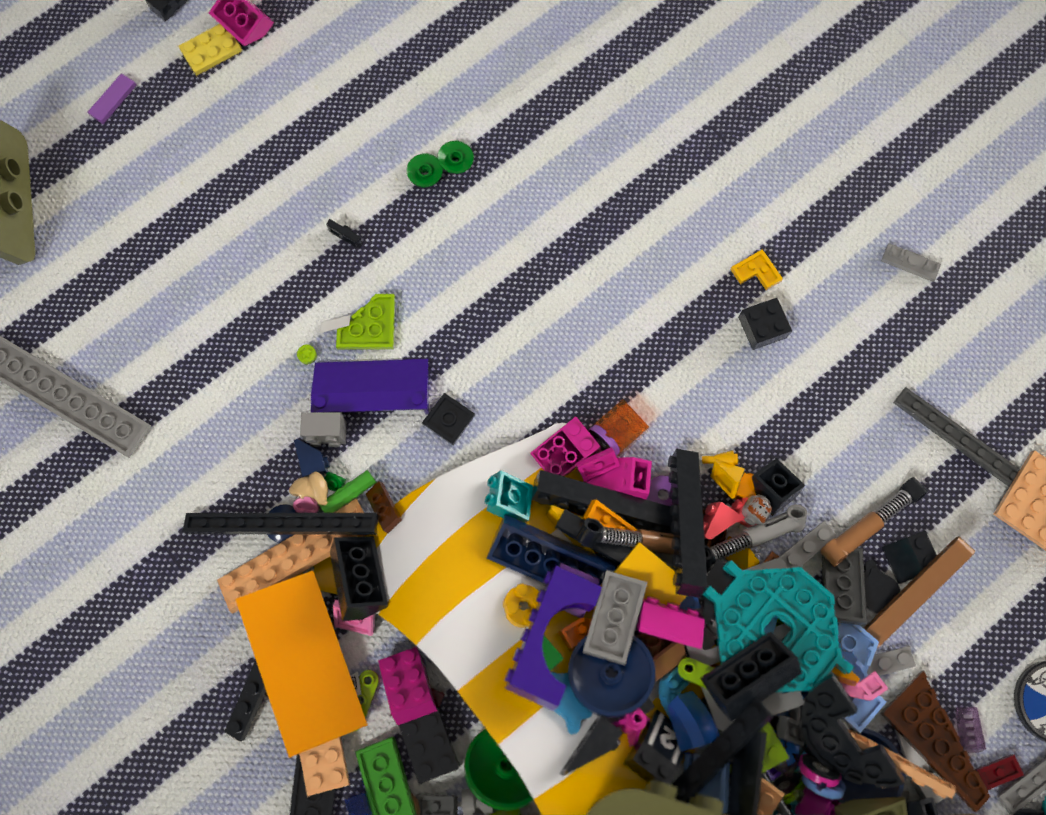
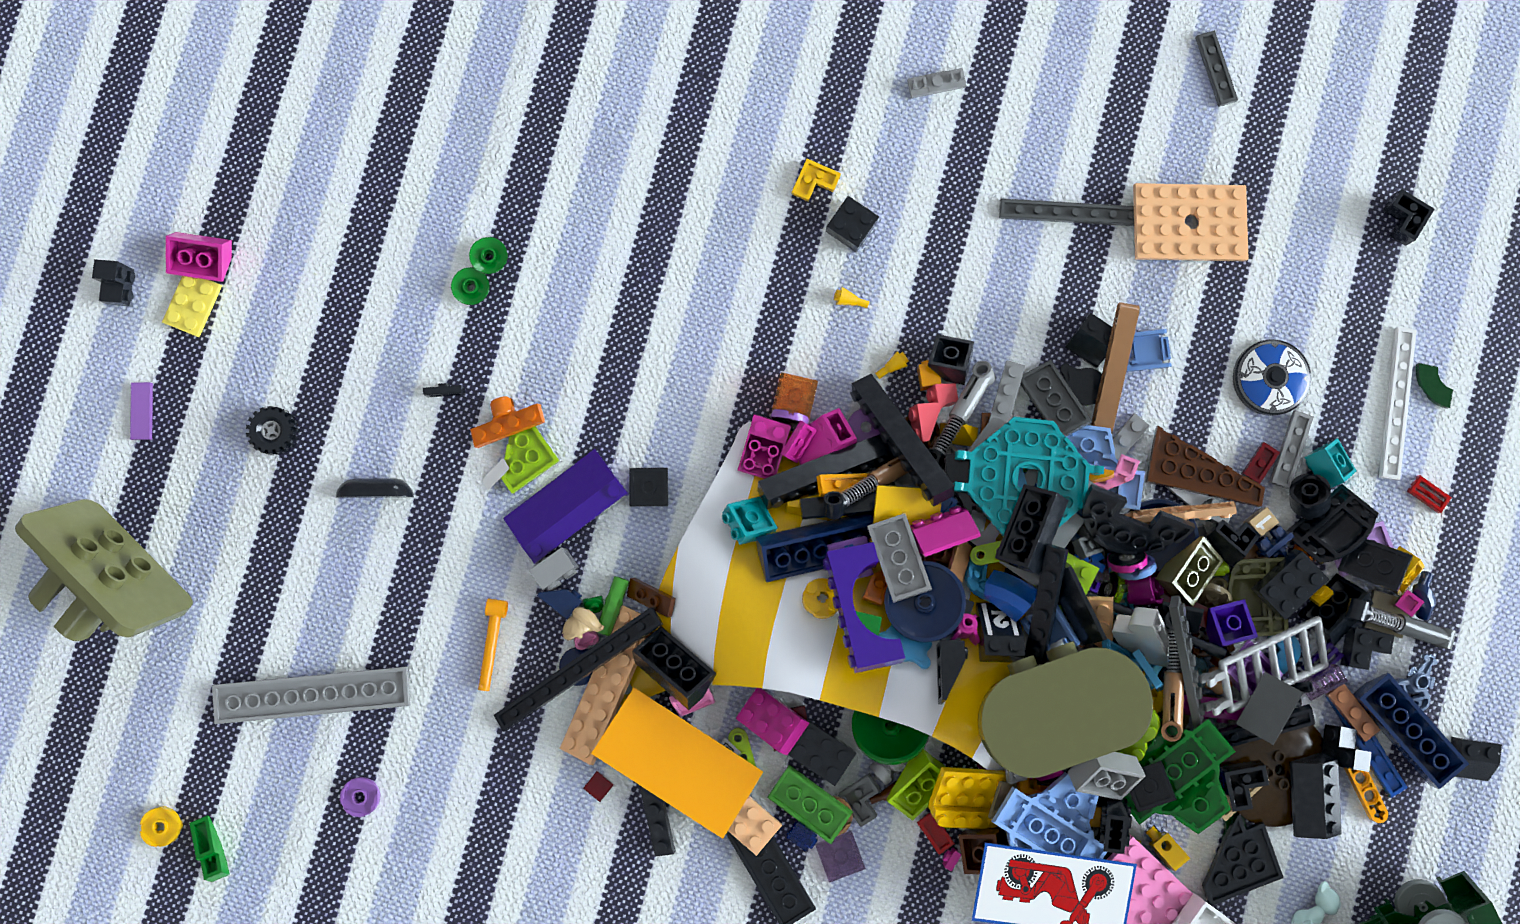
camera: 35 degrees left, 10 degrees up
(43, 505) = (371, 794): none -> medium lavender tile
(185, 172) = (263, 427): none -> black wheel
(224, 636) = (598, 786): none -> dark red sticker
(234, 270) = (374, 488): none -> black brick
(253, 430) = (495, 610): none -> light orange piece
(306, 354) = (490, 516): lime tile -> none
(374, 288) = (506, 421): none -> orange plate
(718, 378) = (845, 297): none -> yellow cone
(727, 477) = (908, 377): yellow slope -> none
(756, 510) = (949, 390): light grey head -> none
(866, 527) = (1045, 334): piece -> none
(956, 601) = (1149, 351): none -> medium blue container
(978, 737) = (1224, 442): clear purple slope -> none

